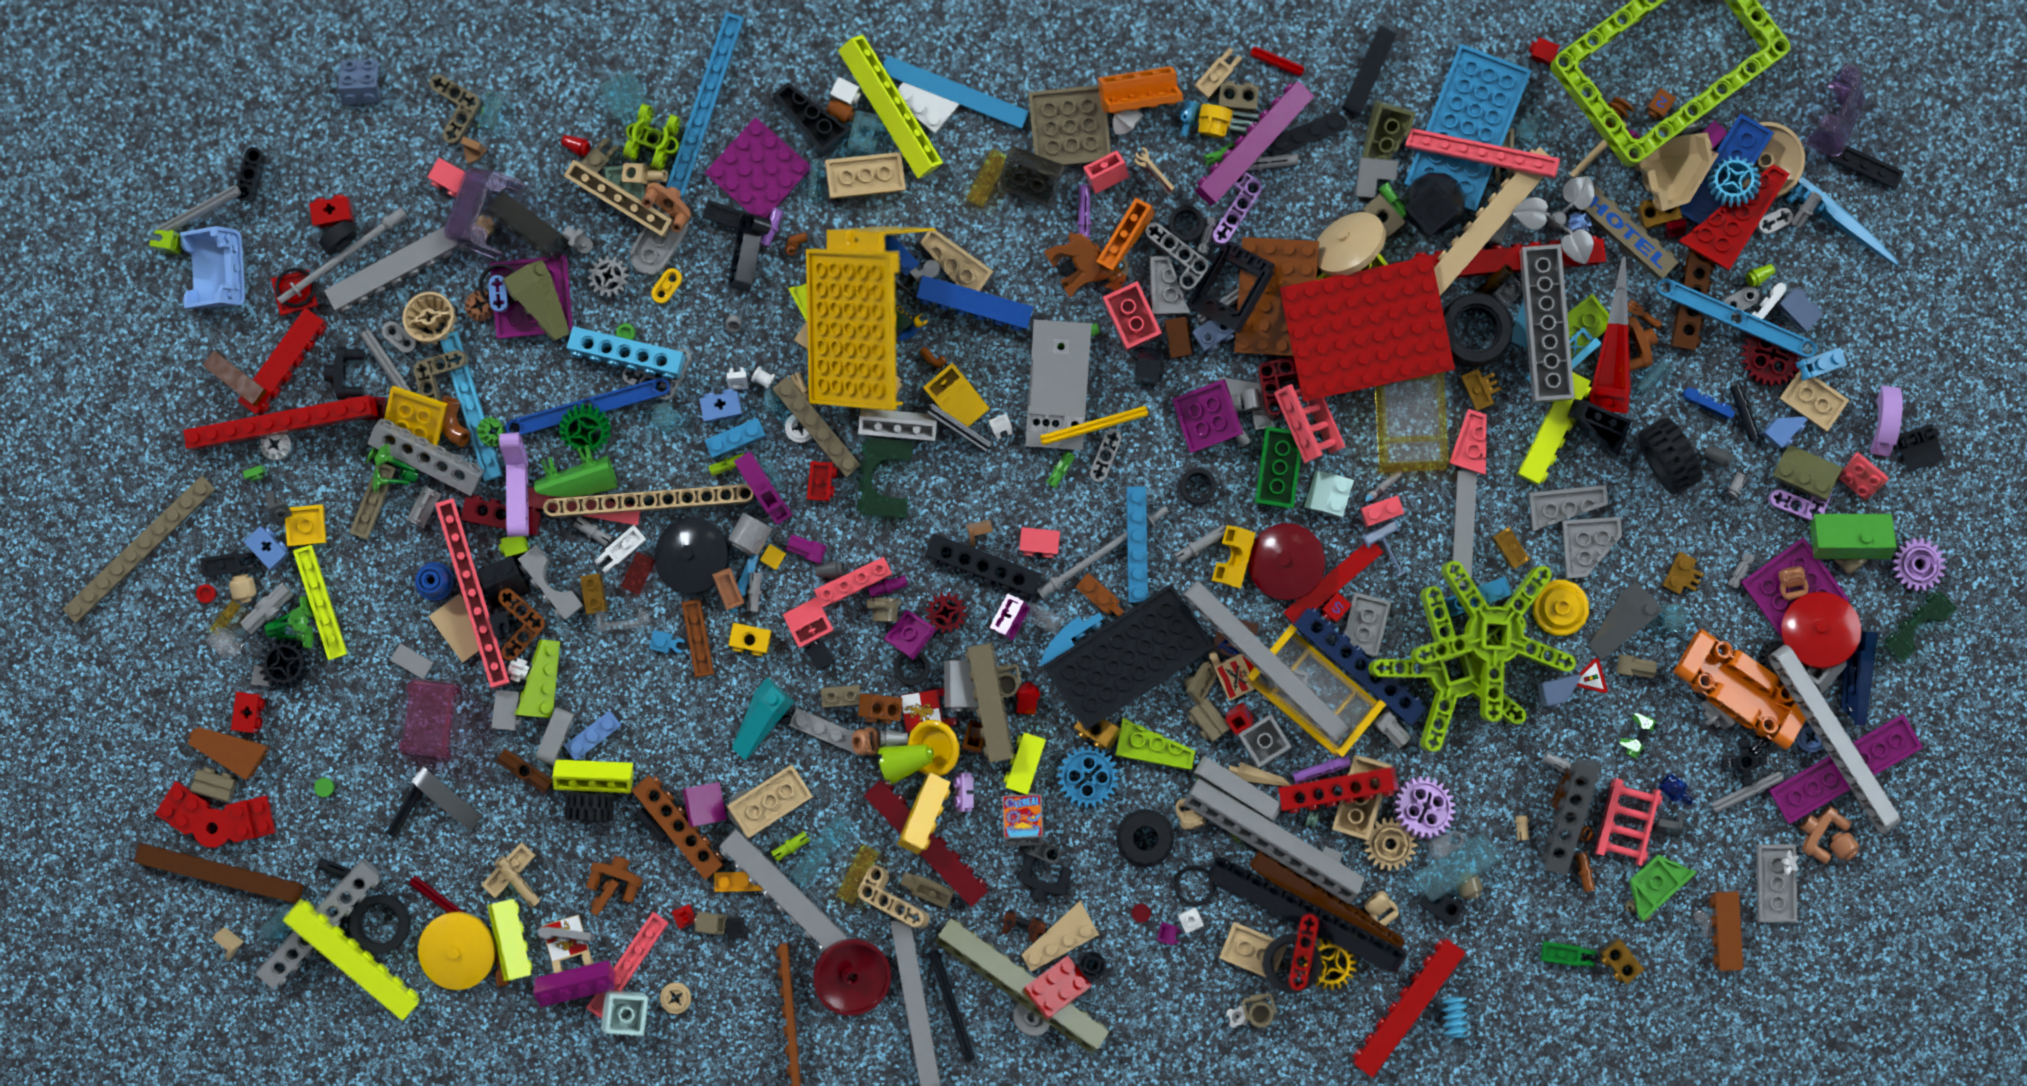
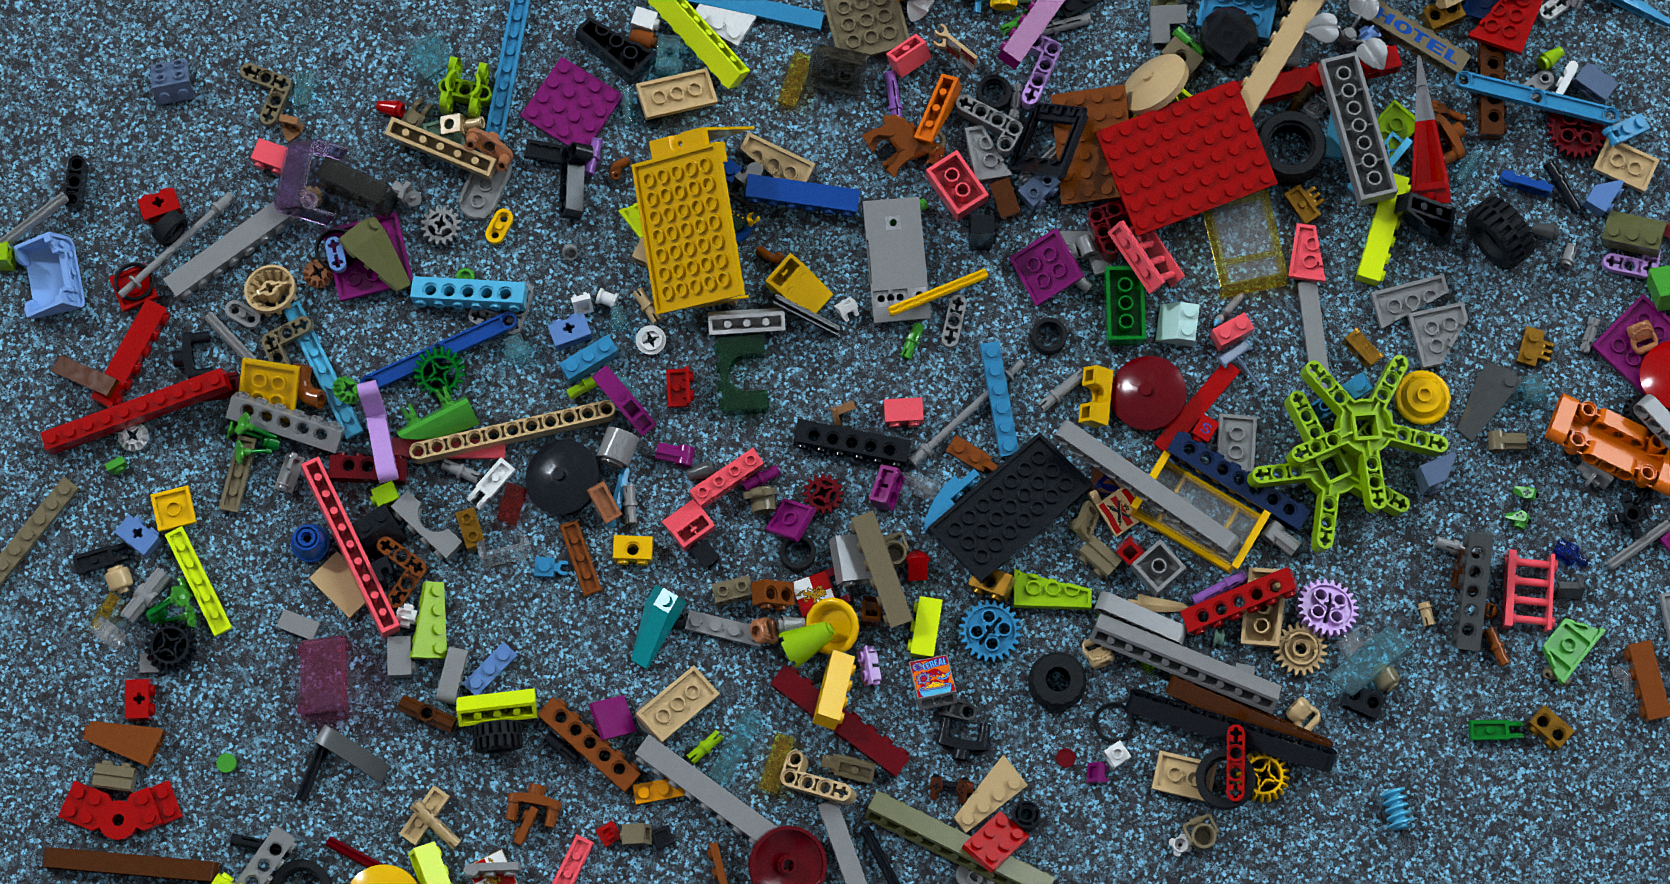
camera: 15 degrees left, 10 degrees down
(206, 593) = (82, 591): red tile -> none
(277, 508) = (144, 495): dark grey bracket -> none
(773, 557) = (643, 468): yellow tile -> none
(816, 427) = (666, 336): dark tan plate -> none
(1408, 1007) = (1349, 806): red brick -> none
(1592, 677) = (1467, 460): sticker -> none
(1675, 228) = (1461, 27): dark red tile -> none

